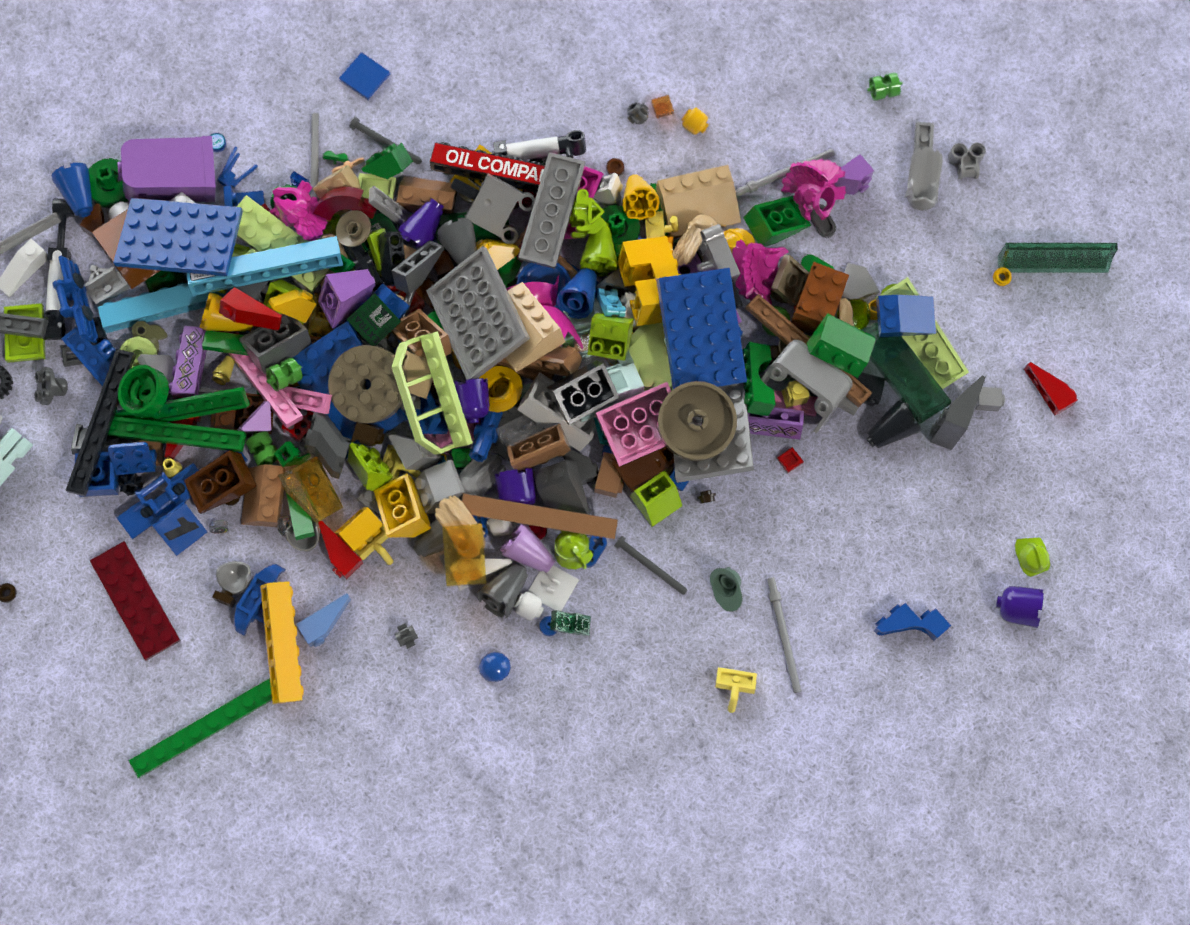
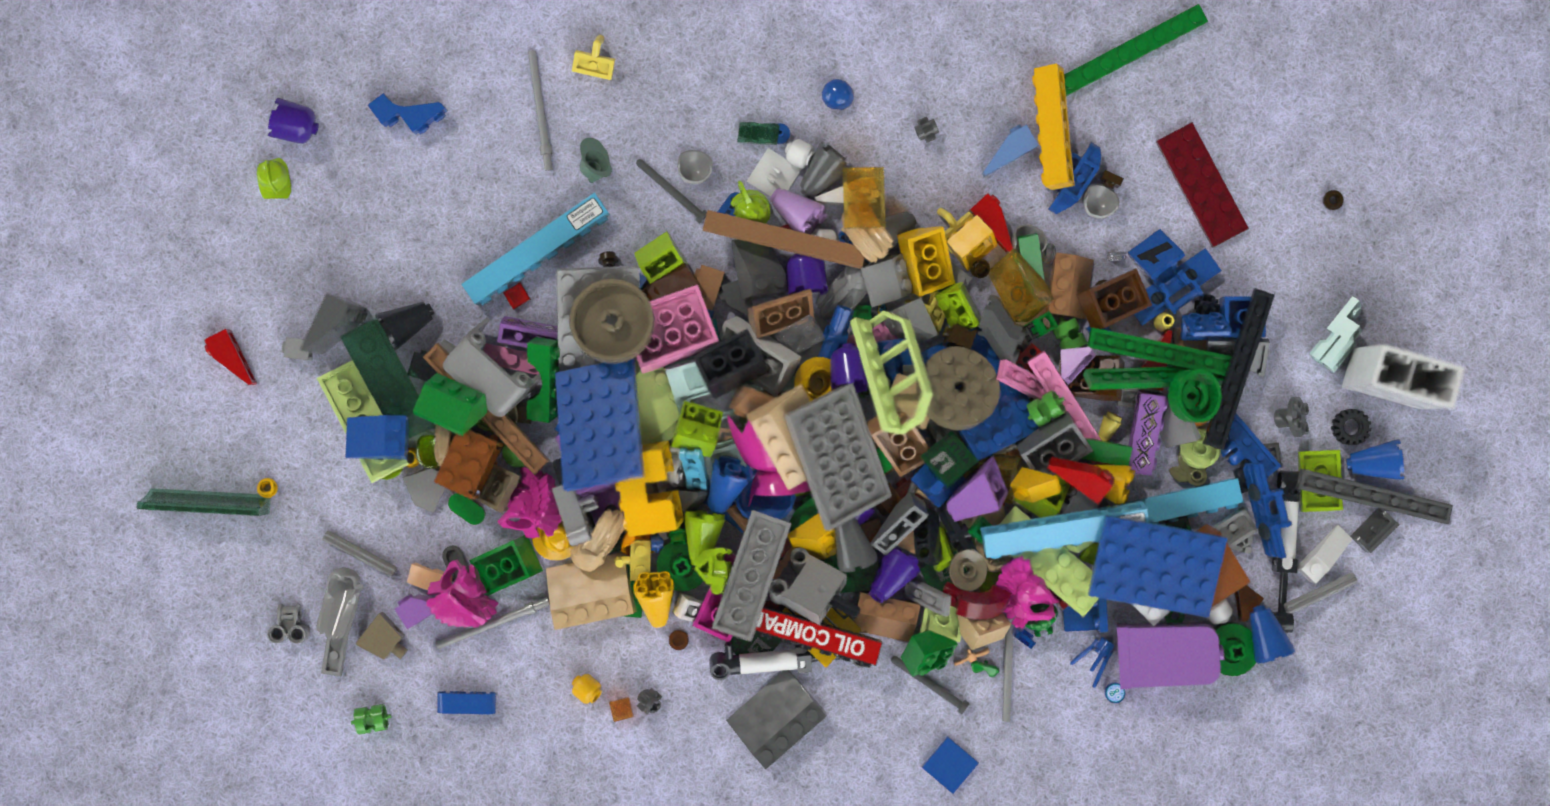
camera: 170 degrees left, 15 degrees up
(349, 507) = (980, 268): none -> dark brown plate
(522, 104) = (776, 718): none -> dark grey slope
(630, 587) = (694, 166): none -> light grey helmet
(775, 502) = (536, 249): none -> medium azure brick
(795, 394) = (506, 360): light yellow window -> none
(801, 104) = (466, 703): none -> blue beam
(849, 206) = (423, 576): none -> light nougat slope
(882, 153) = (382, 638): none -> dark tan torso
(911, 225) = (359, 553): none -> light grey axle

